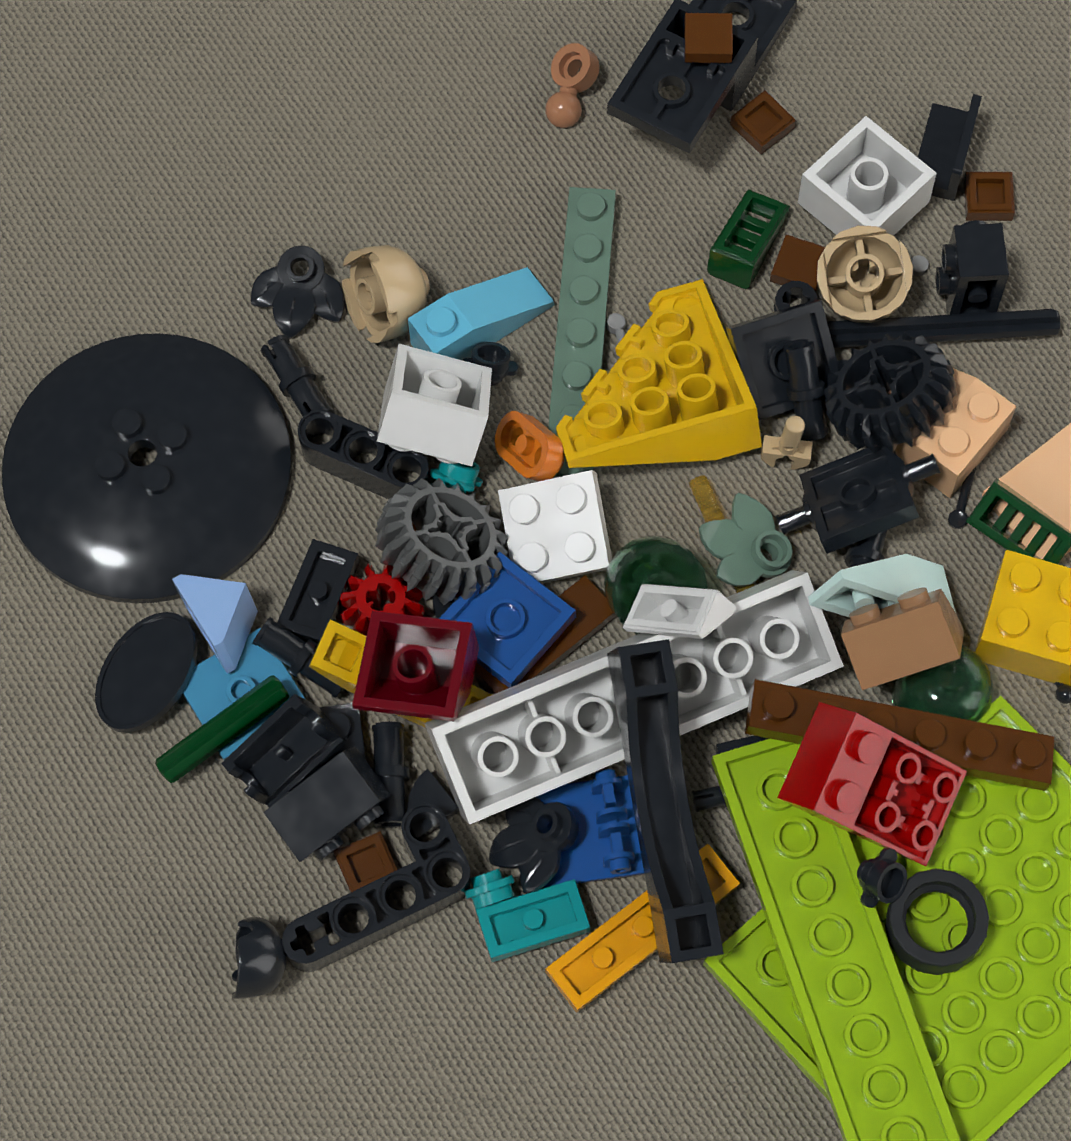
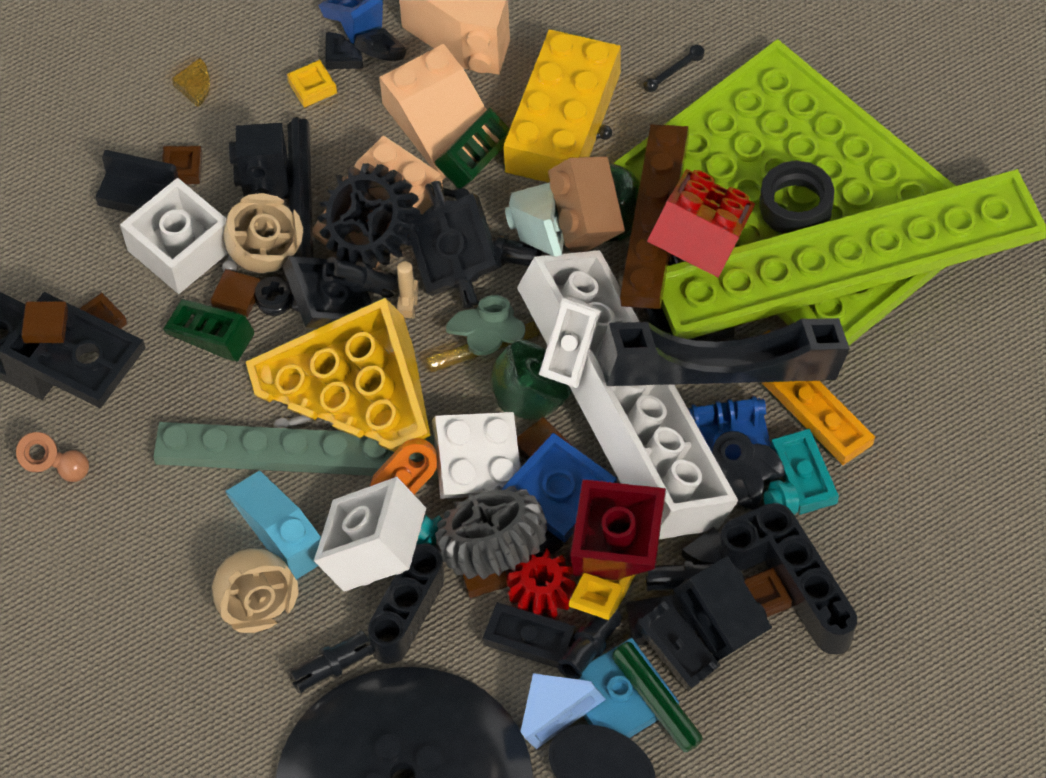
camera: 90 degrees left, 10 degrees down
(258, 957) = (852, 661): black hair -> none
(298, 297) = (246, 668): black plate -> none
(495, 357) = (316, 510): black plate -> none
(881, 878) = (773, 220): black plate -> none

